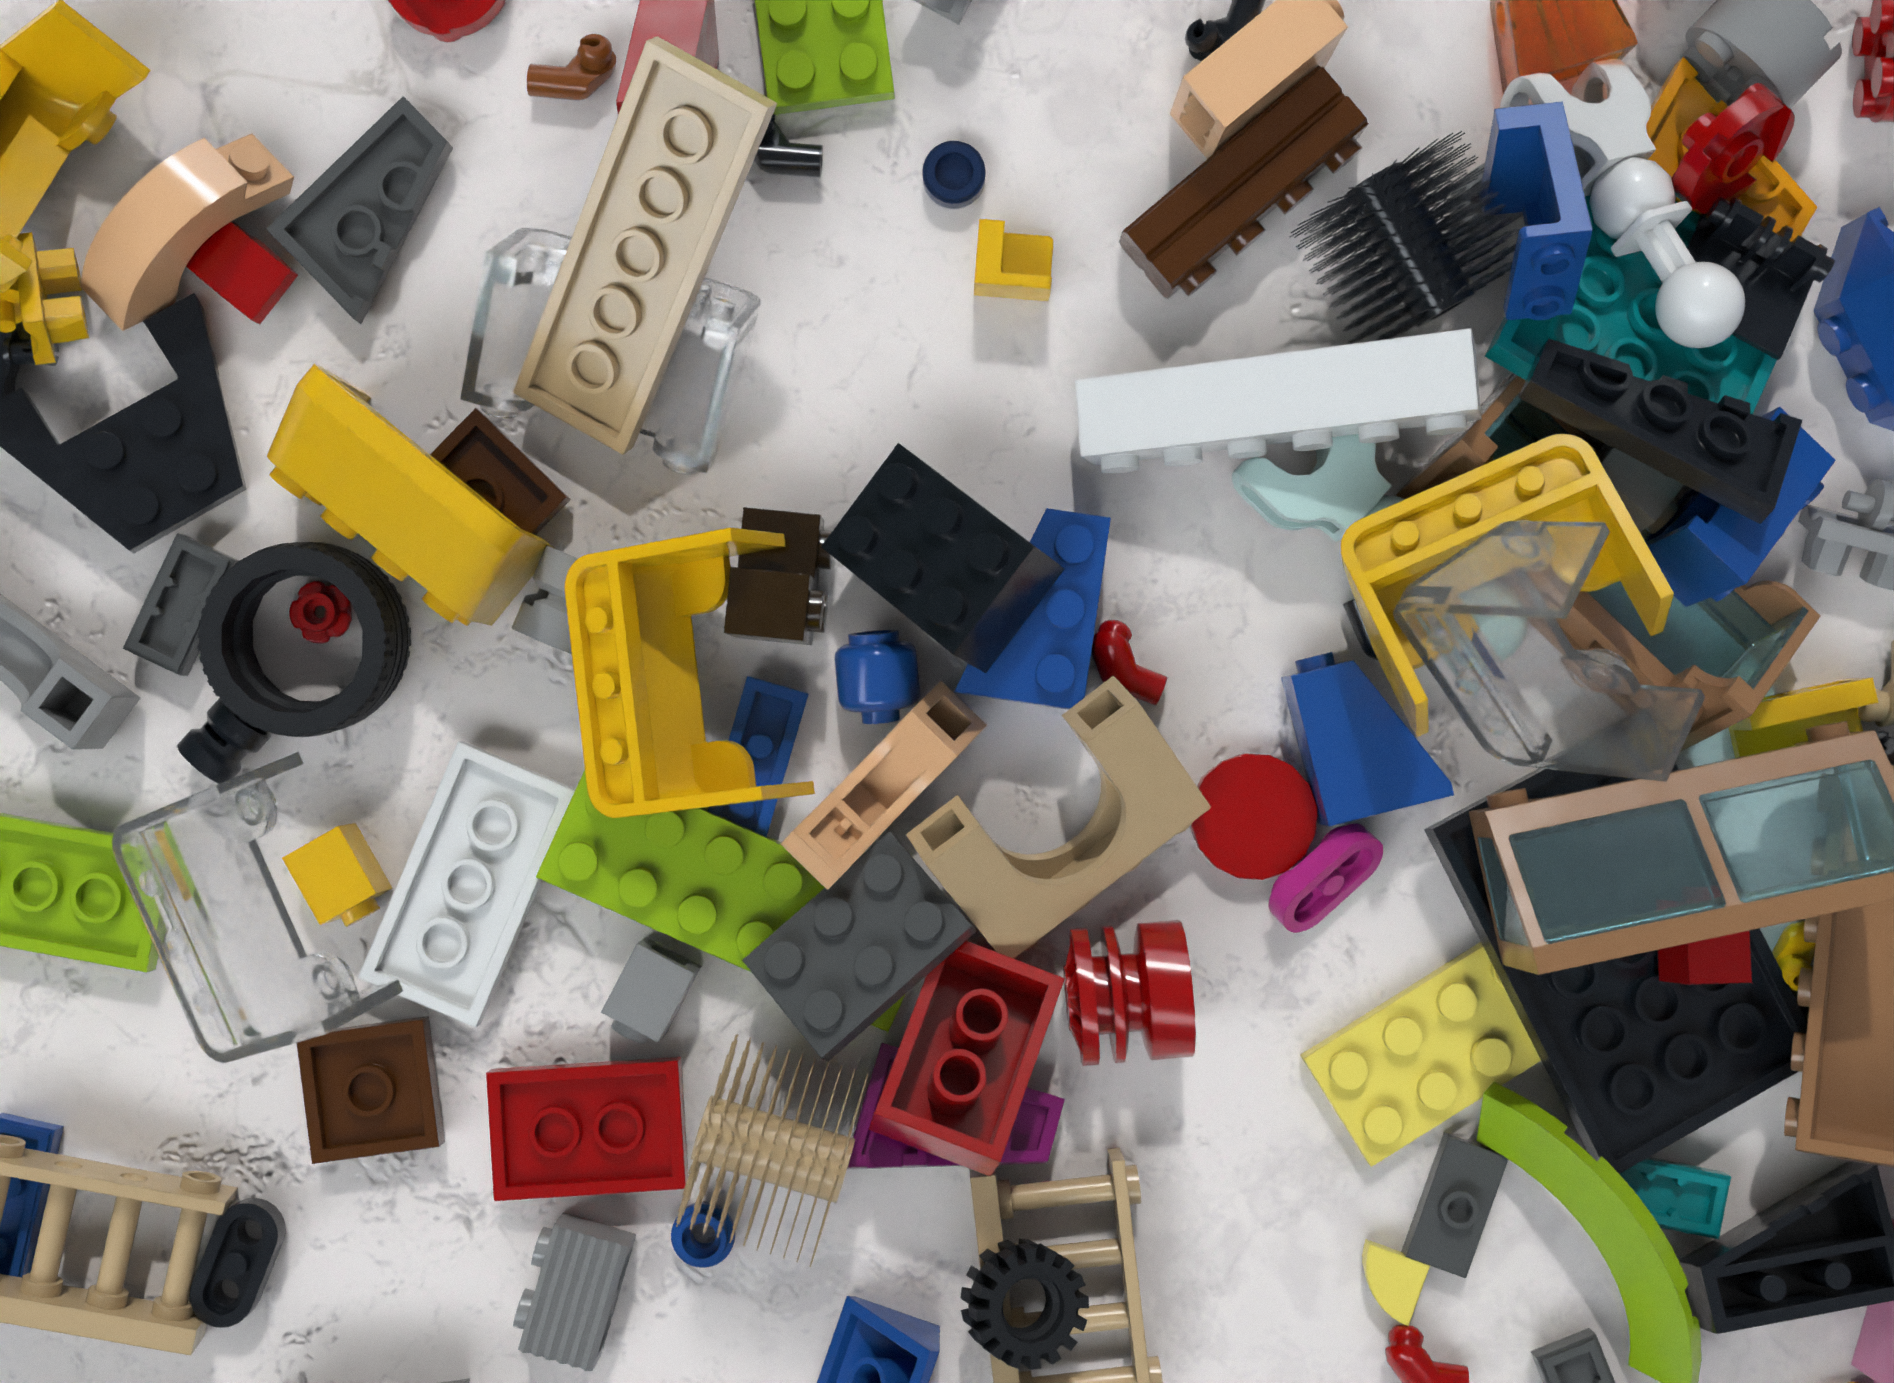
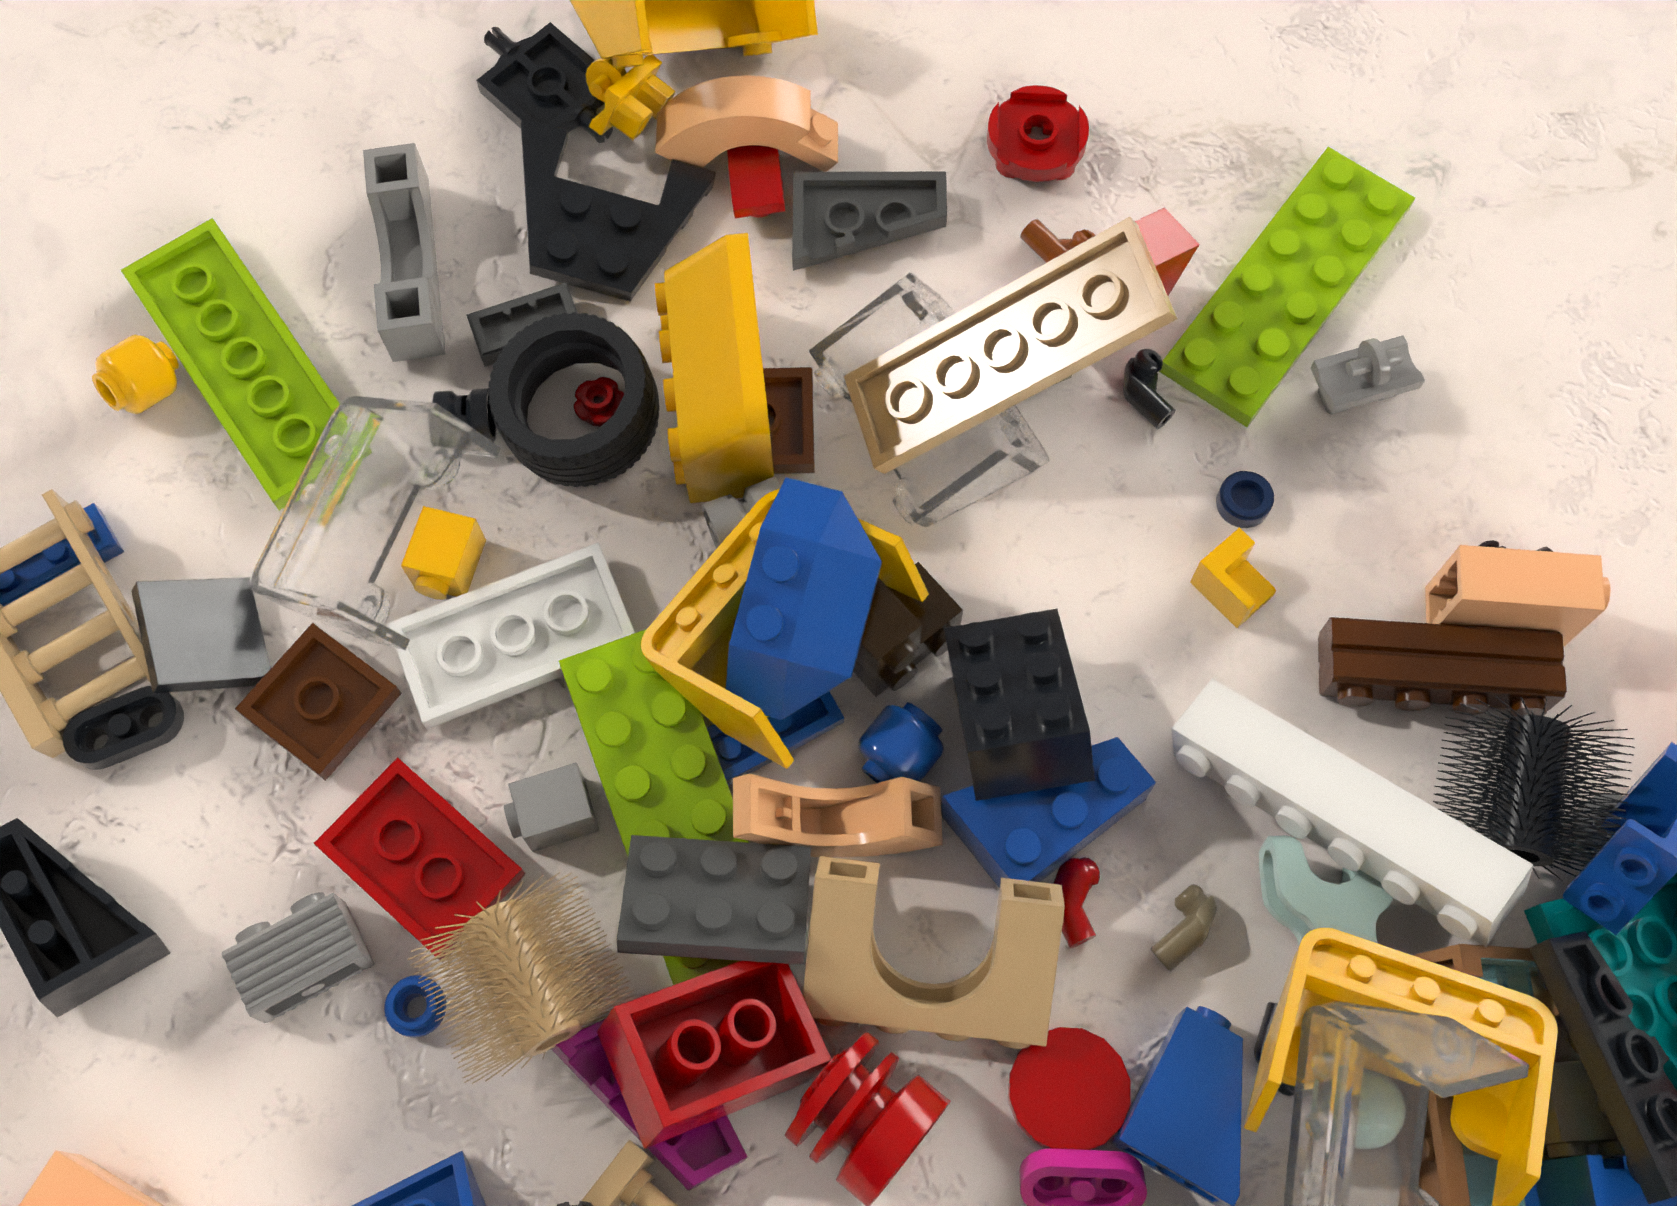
camera: 40 degrees right, 20 degrees down
(216, 1135) = (200, 634): none -> tile
(694, 649) = (802, 601): none -> blue wedge
(1238, 603) = (1191, 931): none -> dark tan arm

